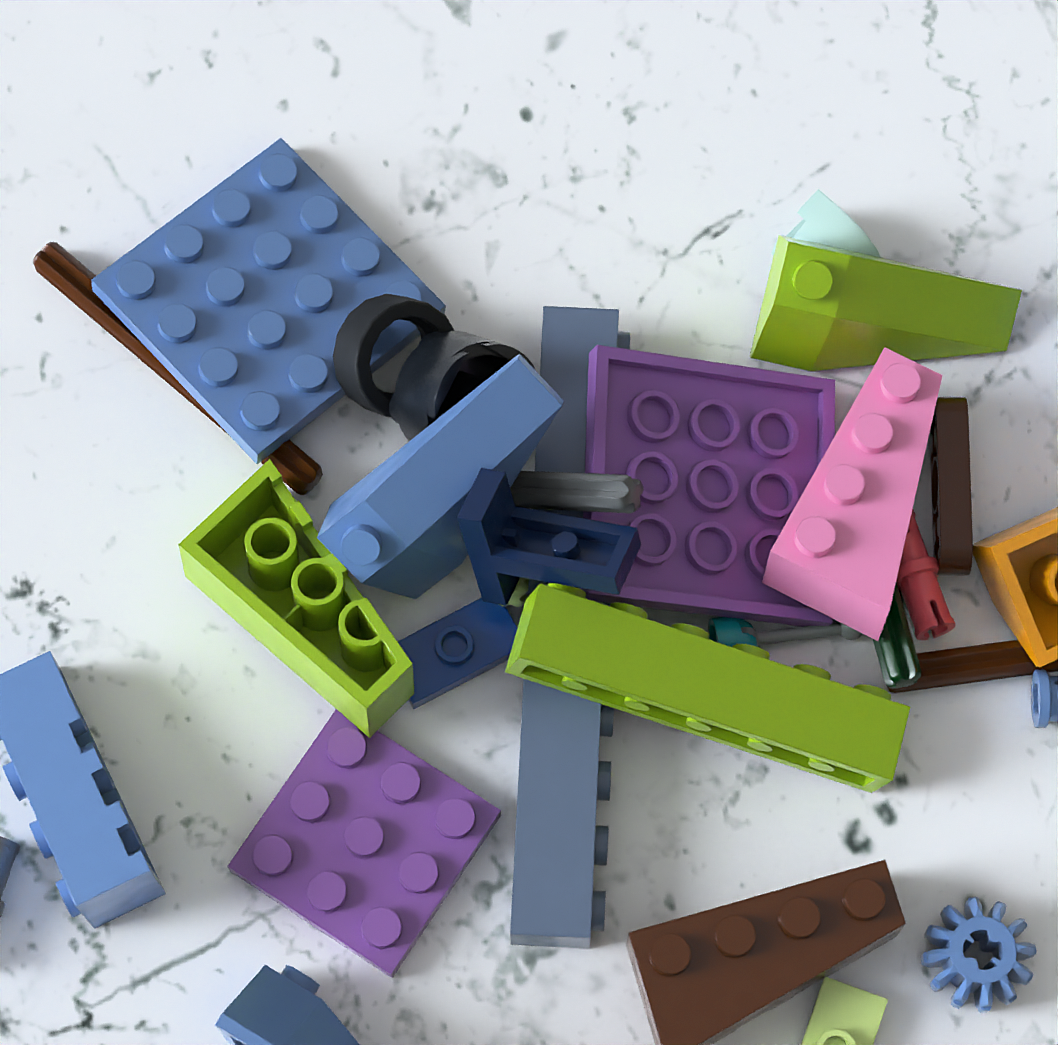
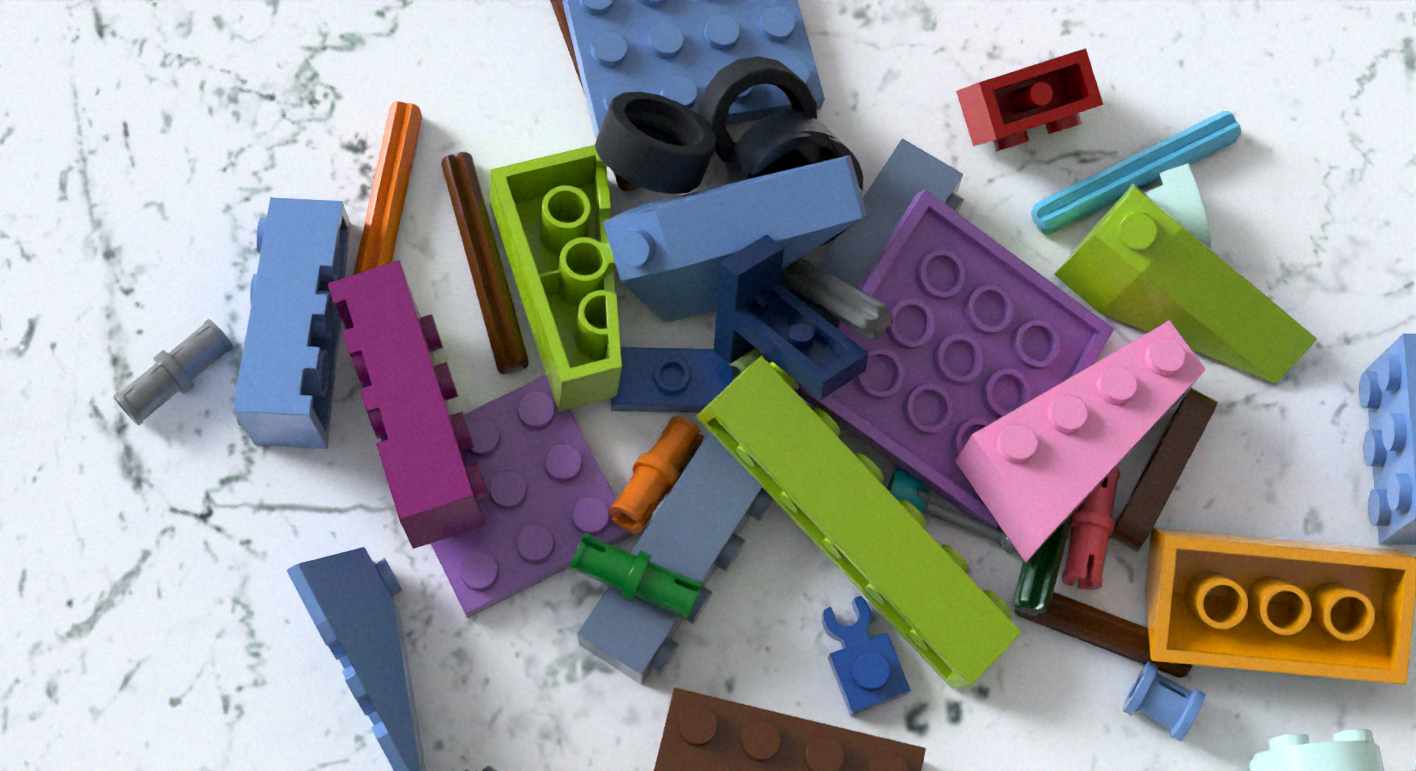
camera: 25 degrees right, 0 degrees up
(89, 640) = (389, 186): none -> orange axle
(213, 635) = (484, 263): none -> reddish brown axle
(232, 808) = (409, 405): none -> magenta wedge
(320, 435) = (655, 142): none -> black tyre
(494, 746) = (655, 474): none -> orange pin
(536, 850) = (635, 576): none -> green pin
(638, 204) = (1030, 97): none -> red brick
(771, 220) = (1141, 169): none -> medium azure axle
(784, 817) = (866, 666): none -> blue plate

